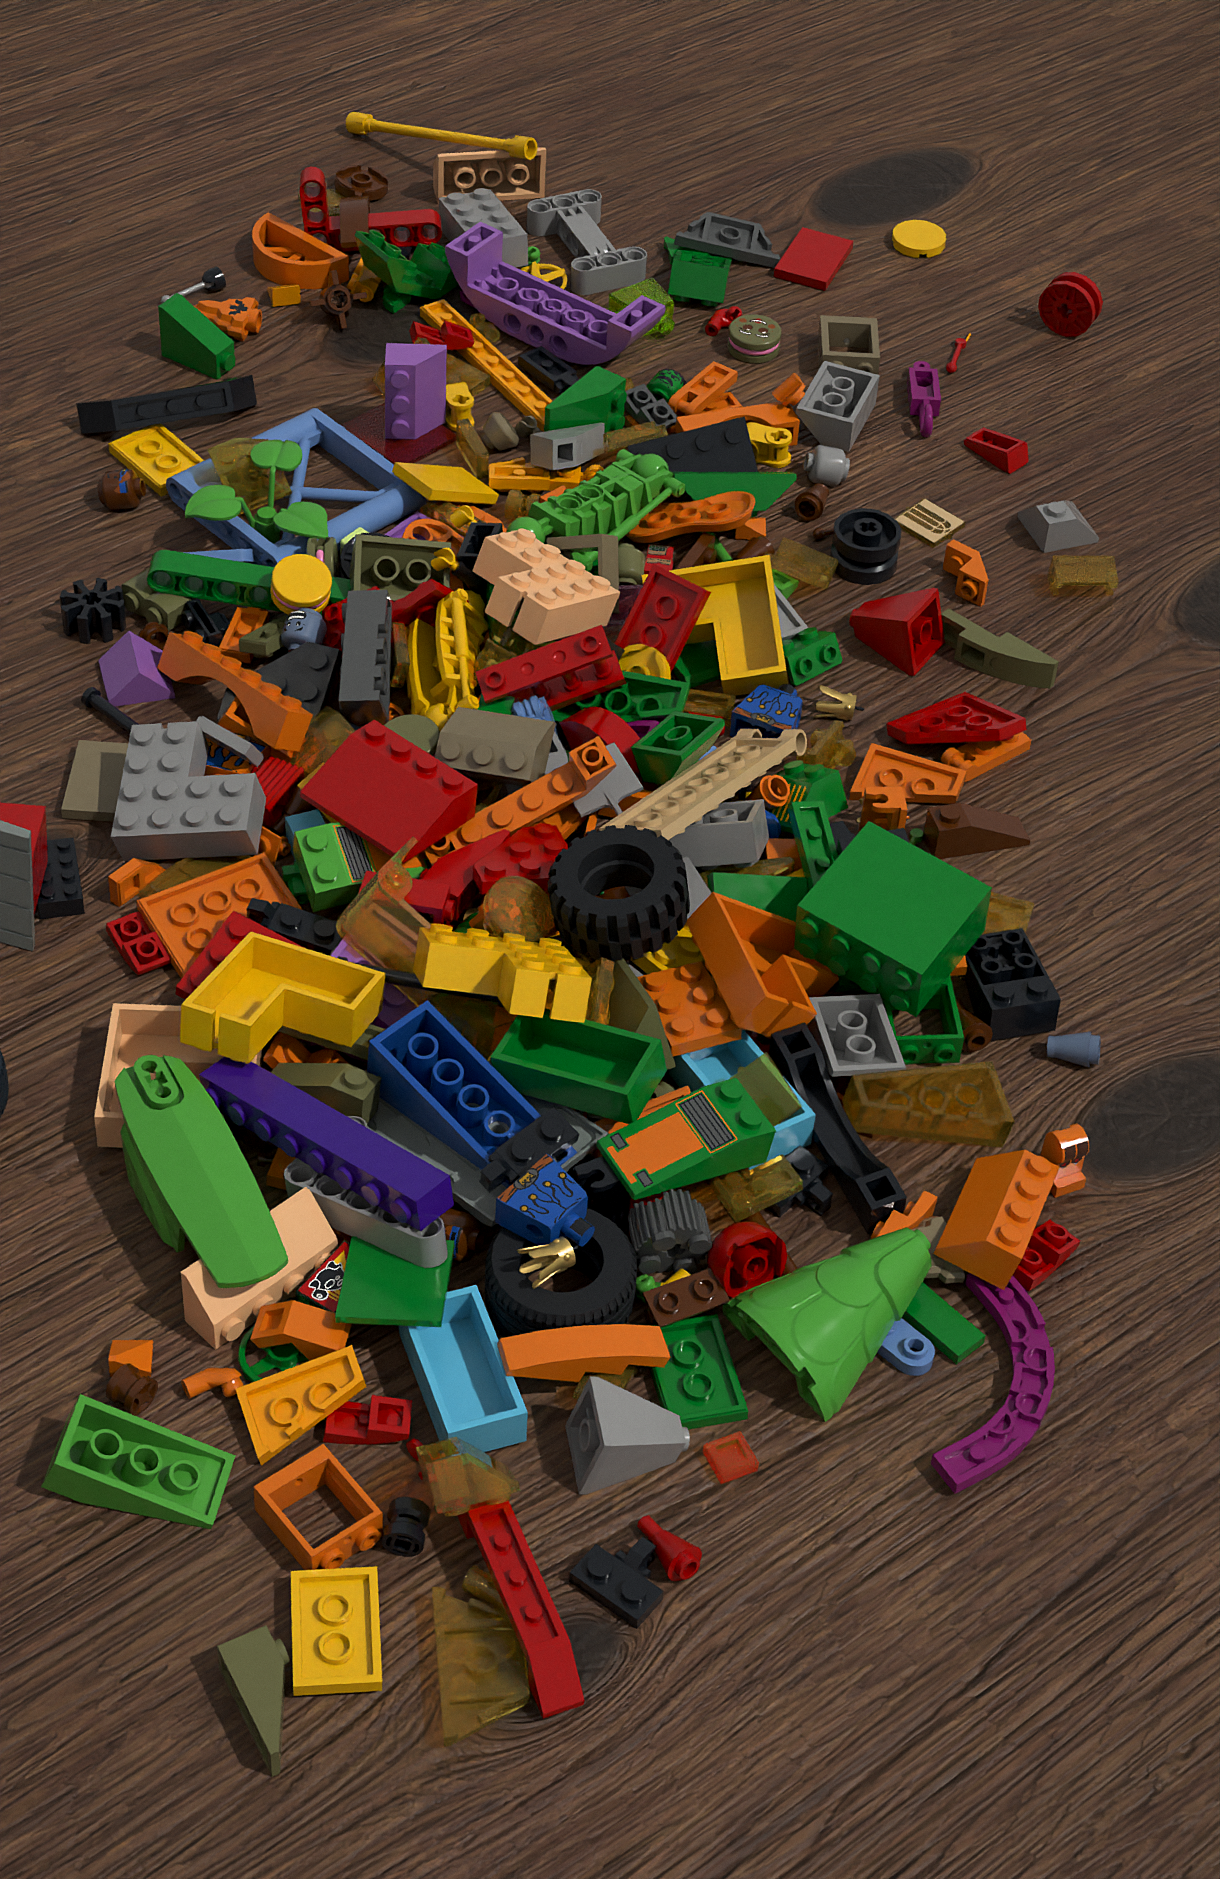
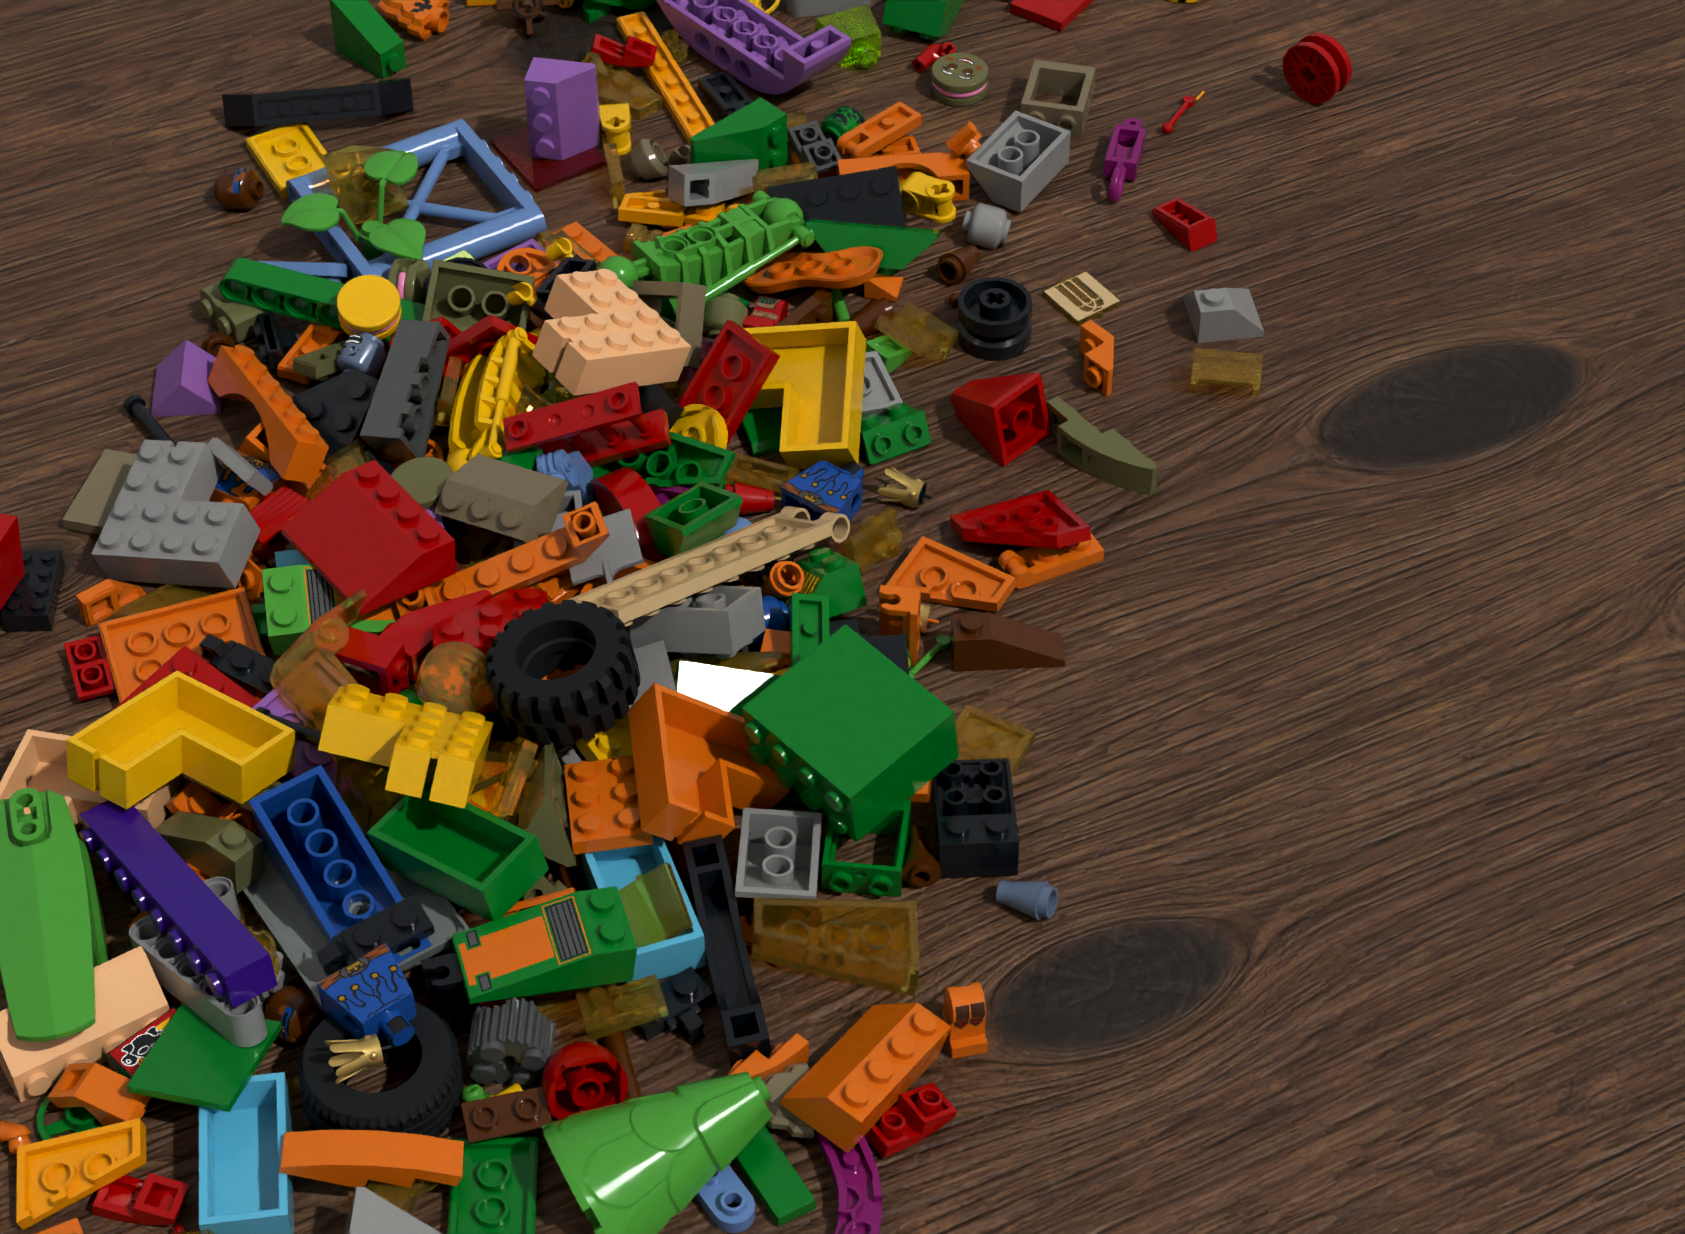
camera: 15 degrees right, 0 degrees up
(93, 611) = (165, 314): black gear -> none
(445, 483) = (568, 211): yellow tile -> none

